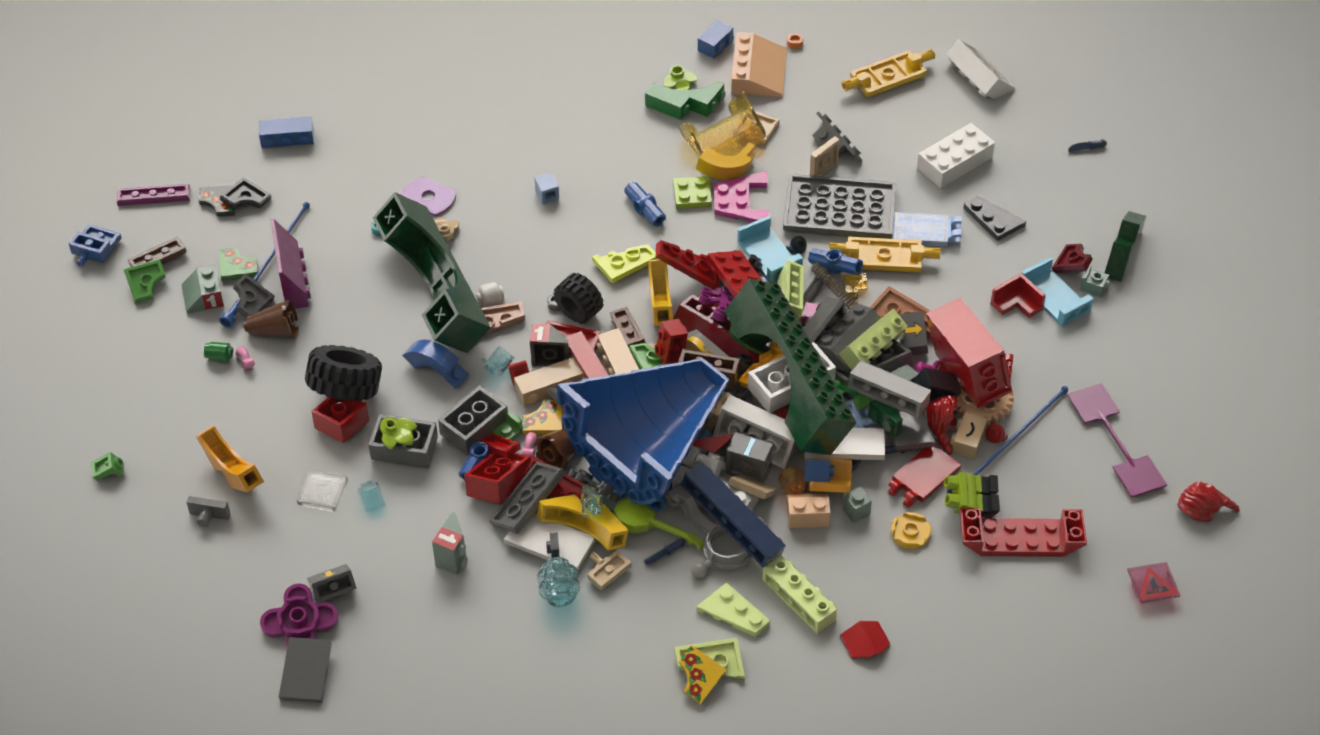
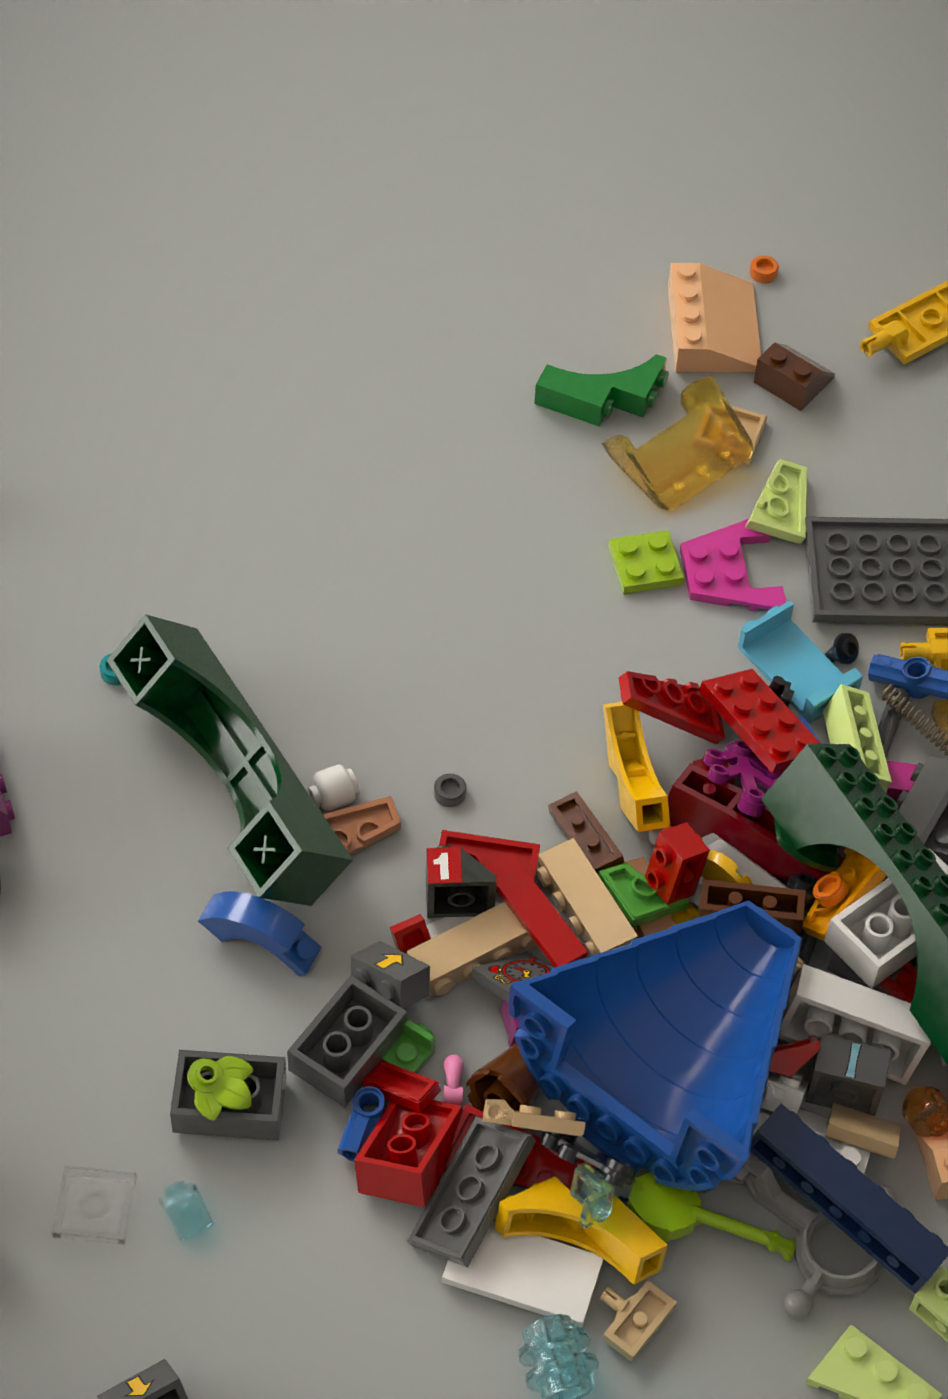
camera: 10 degrees left, 5 degrees up
(340, 418) = (107, 1055): red brick -> none
(343, 373) = (103, 974): black tyre -> none
(439, 204) = (174, 583): piece -> none
(446, 228) = (234, 661): tan plate -> none
(449, 546) = (352, 1305): sand green slope -> none
(498, 361) = (369, 917): clear light blue bracket -> none
(504, 387) = (392, 974): none -> dark grey brick
(544, 420) = (471, 1026): yellow tile -> none
(546, 188) = (396, 573): medium blue brick -> none
(553, 545) = (537, 1289): plate -> none
(565, 462) = (530, 1117): none -> tan hinge
(578, 298) = (494, 786): black tyre -> none
(619, 265) = (557, 706): neon yellow wing -> none
(645, 204) = (570, 591): blue piece -> none
(667, 550) = (727, 1272): dark blue piece -> none
(679, 78) = (585, 351): lime plate -> none
(715, 39) = (633, 275): brick -> none
(725, 167) = (692, 512): yellow arch -> none
(756, 361) = (830, 890): none -> orange tile
(777, 166) = (782, 504): none -> yellowish green wing
(797, 98) = (791, 375): none -> reddish brown slope
(825, 158) = (863, 485): tan tile -> none
(827, 132) = (863, 450): dark grey bracket -> none

